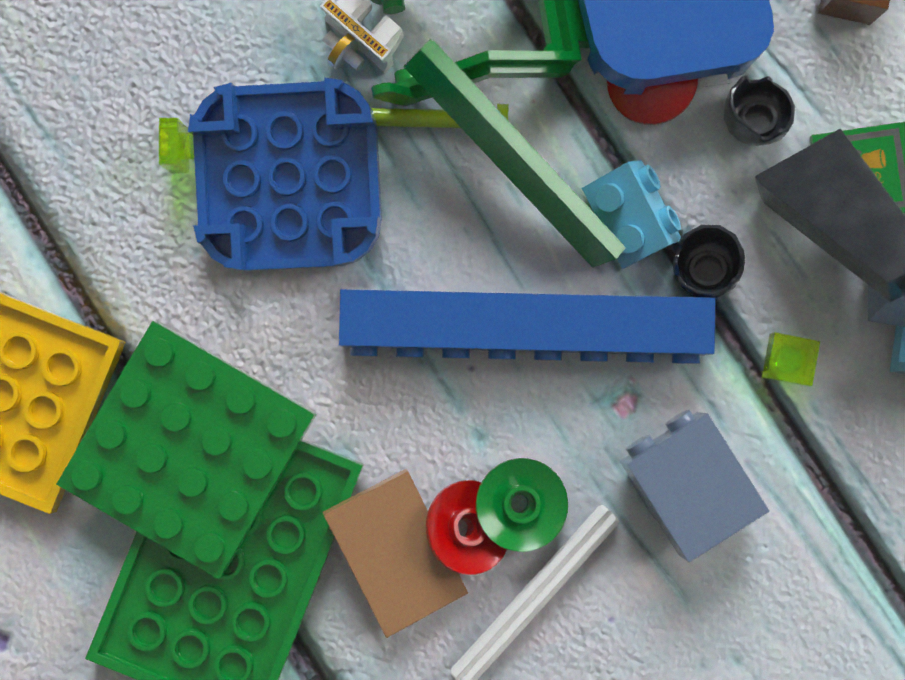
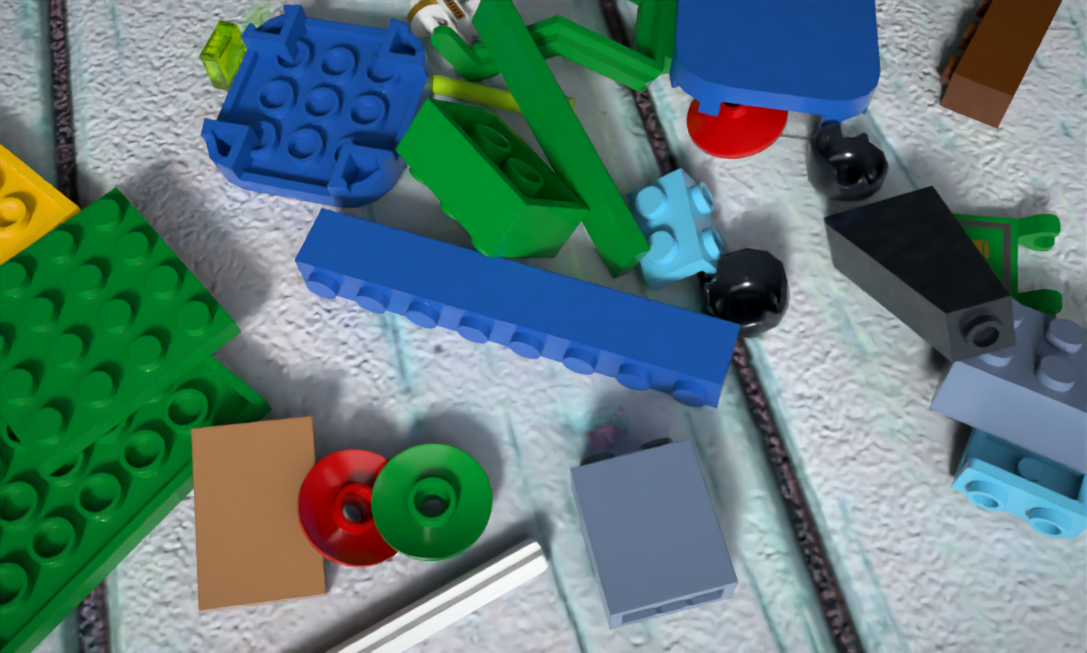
camera: 25 degrees right, 25 degrees down
(474, 223) = (490, 181): none -> green brick
(791, 359) = (822, 433): clear neon green plate -> none

